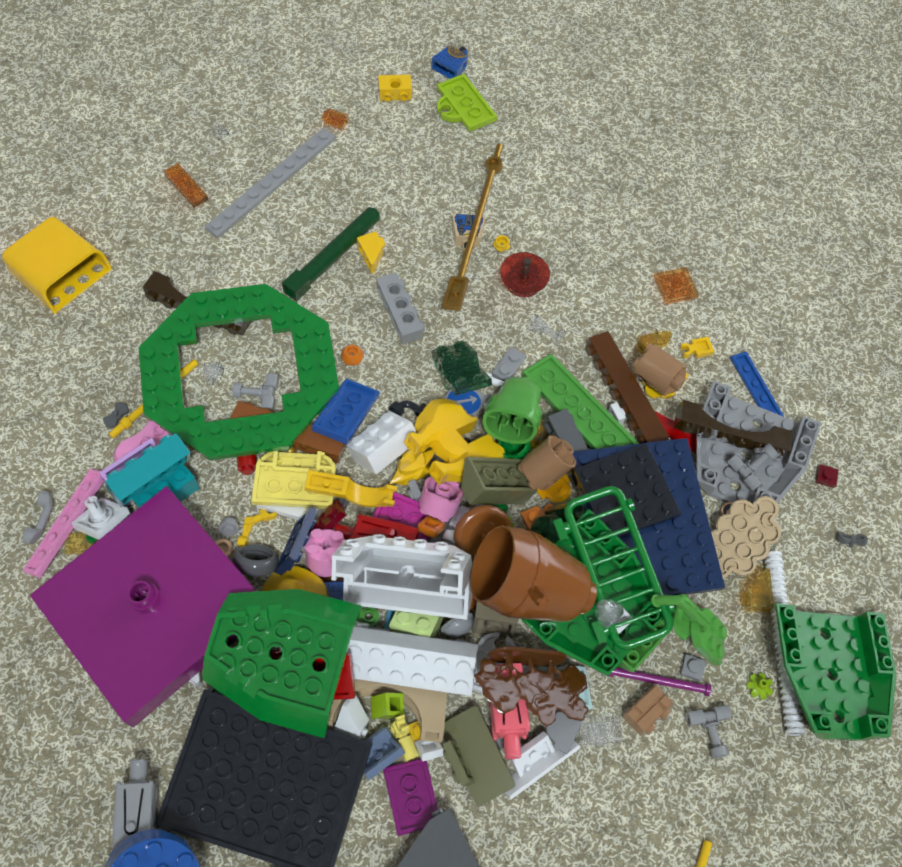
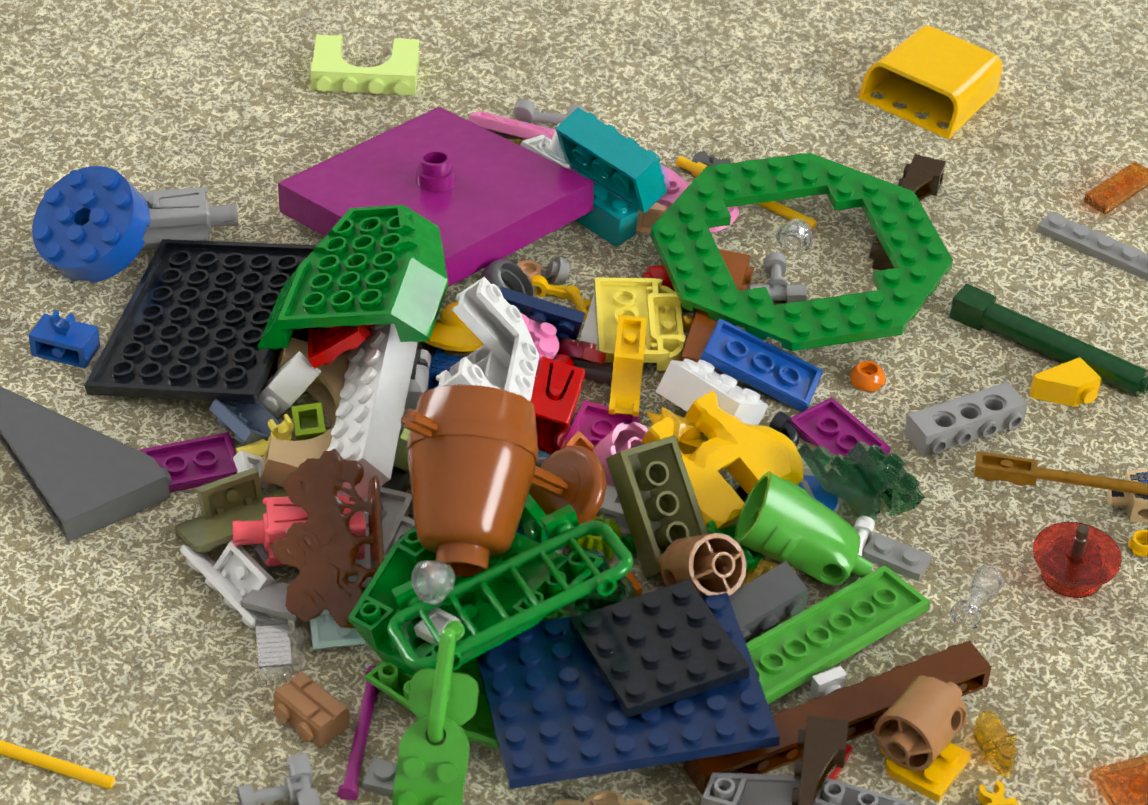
camera: 90 degrees right, 20 degrees down
(404, 379) = (834, 428): none -> magenta tile

